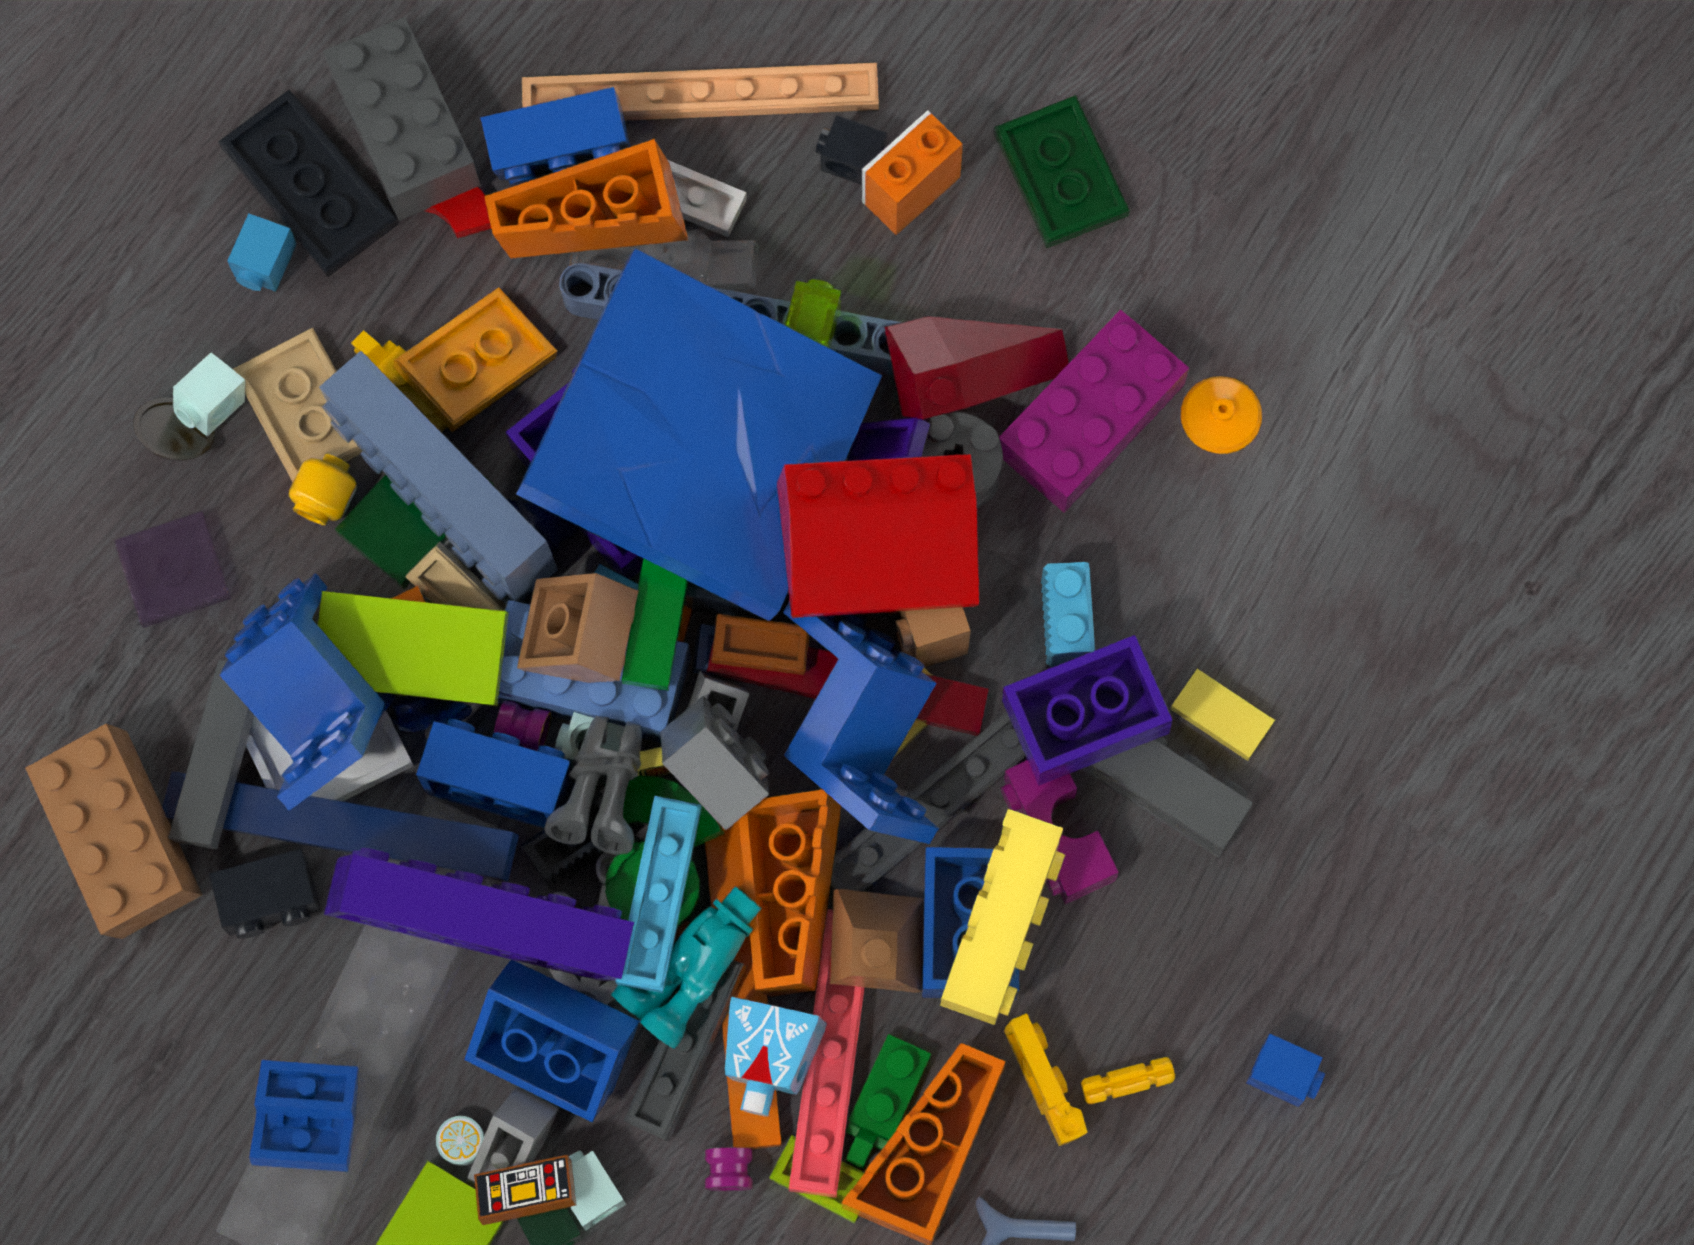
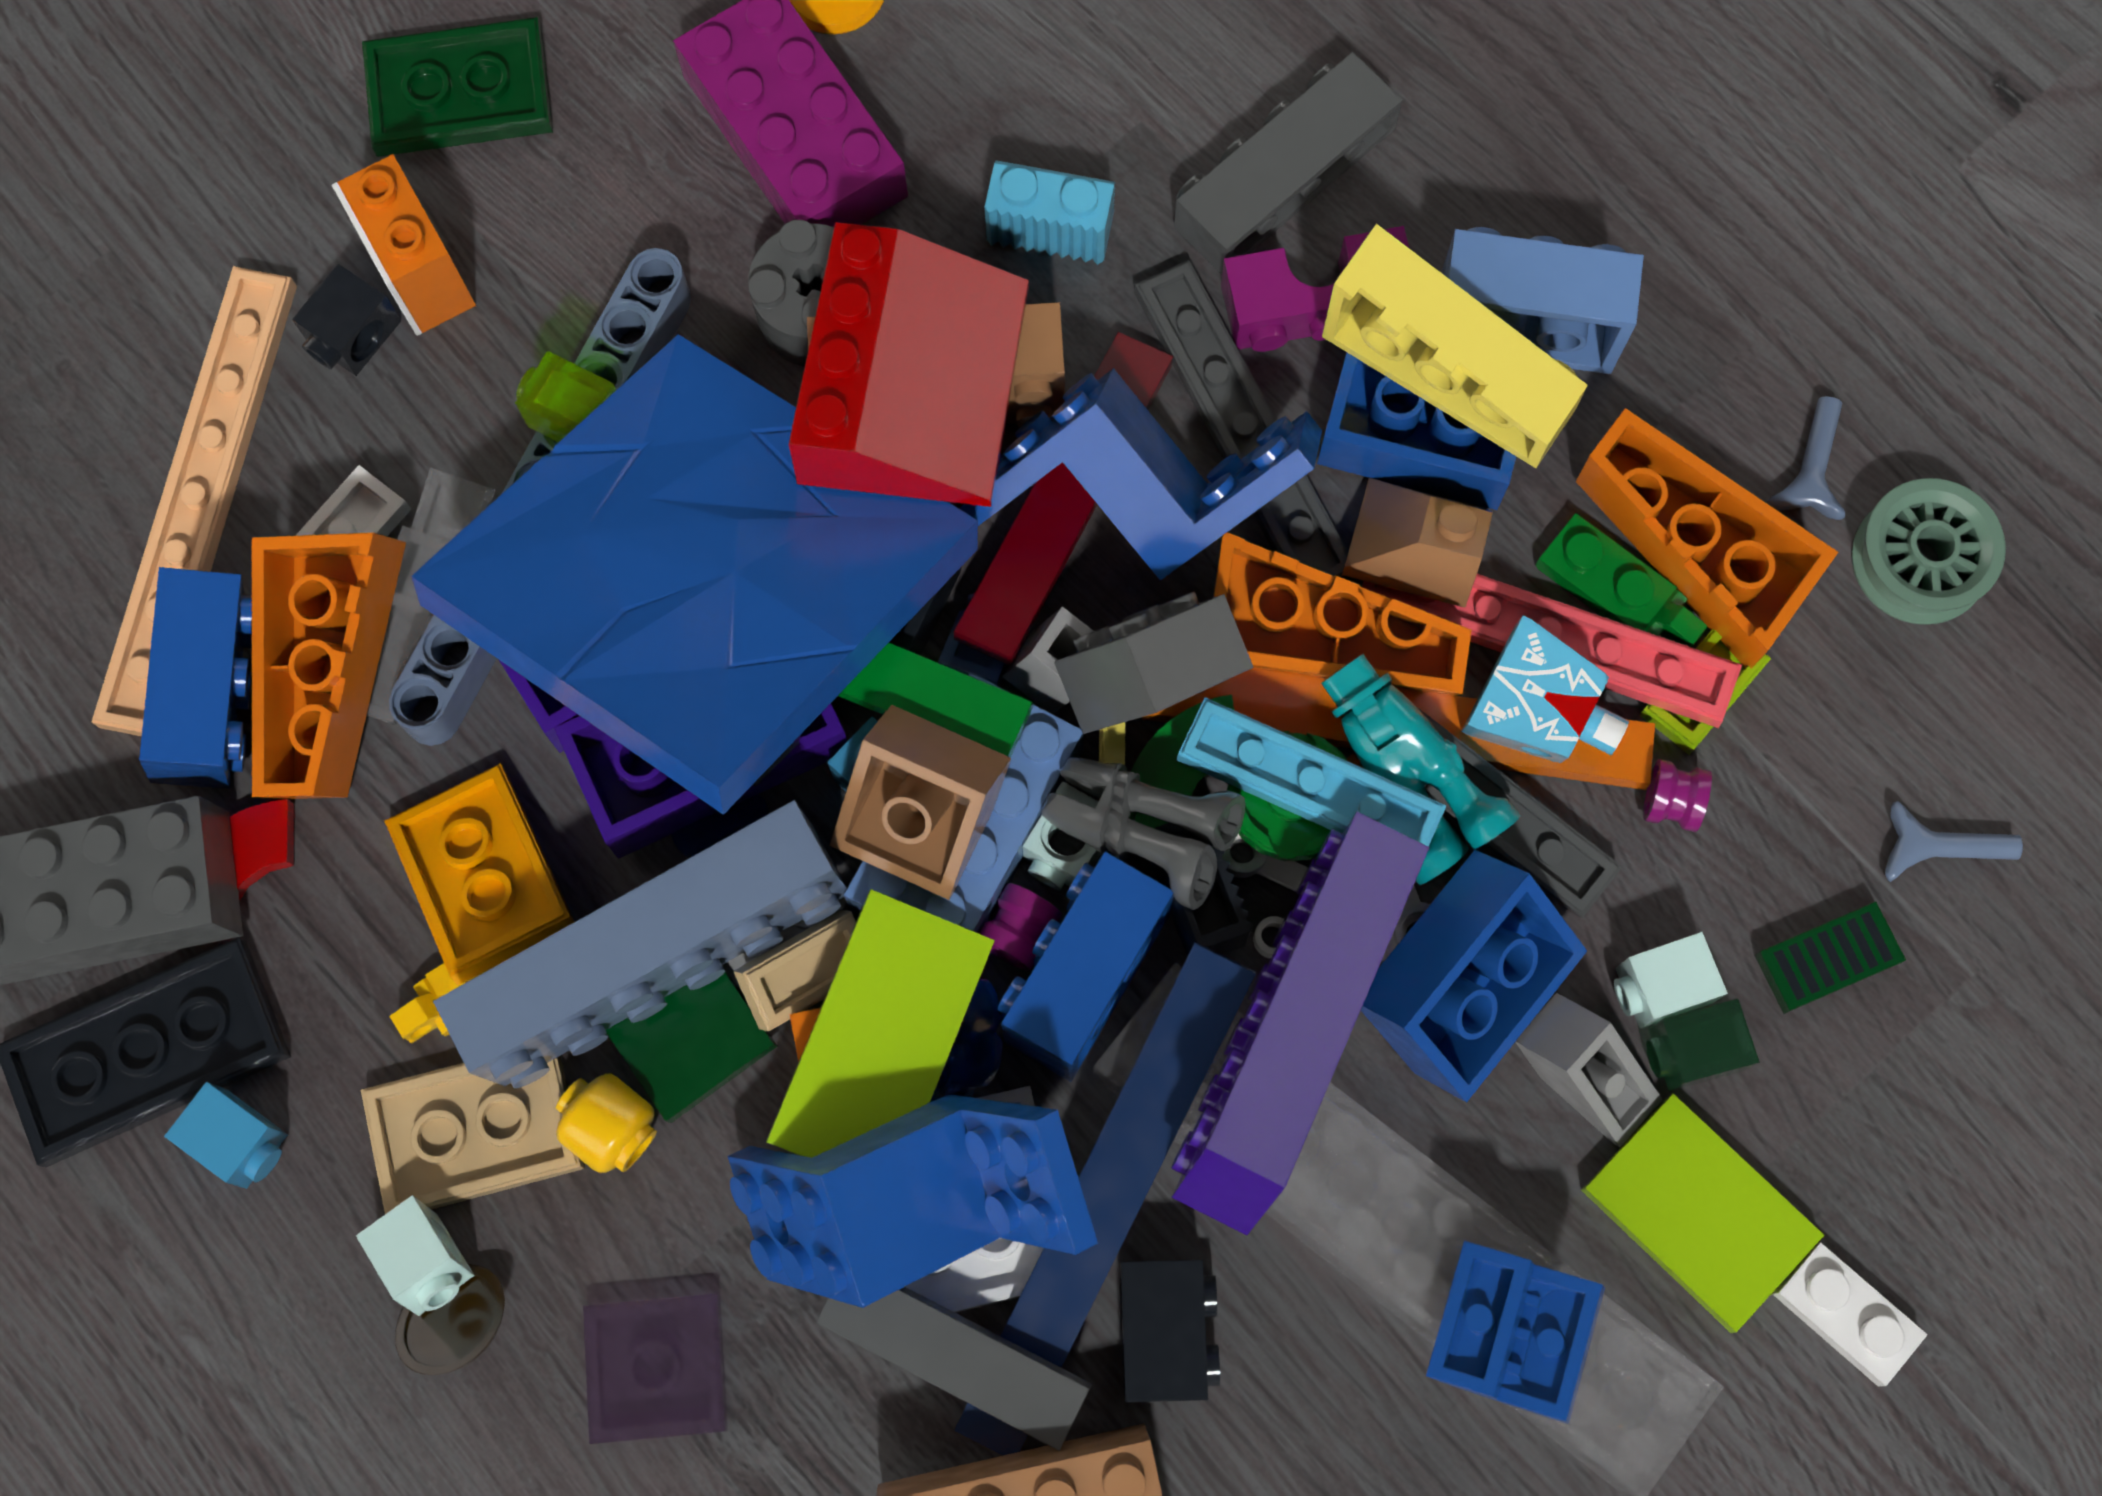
camera: 75 degrees left, 0 degrees up
(459, 1140) = (1563, 1139): tile -> none
(525, 1190) = (1669, 1055): tile -> none
(760, 644) = (996, 581): dark orange tile -> none
(889, 439) = (771, 346): dark purple tile -> none
(962, 363) = (689, 241): dark red wedge -> none
(1044, 1082) = (1648, 385): yellow hinge -> none
(1084, 981) = (1558, 295): none -> medium blue brick
(1086, 710) = (1200, 194): dark purple brick -> none
(1128, 1080) = (1656, 295): yellow axle -> none
(1222, 714) = (1219, 75): light yellow tile -> none
(1286, 1071) = (1685, 110): blue brick -> none

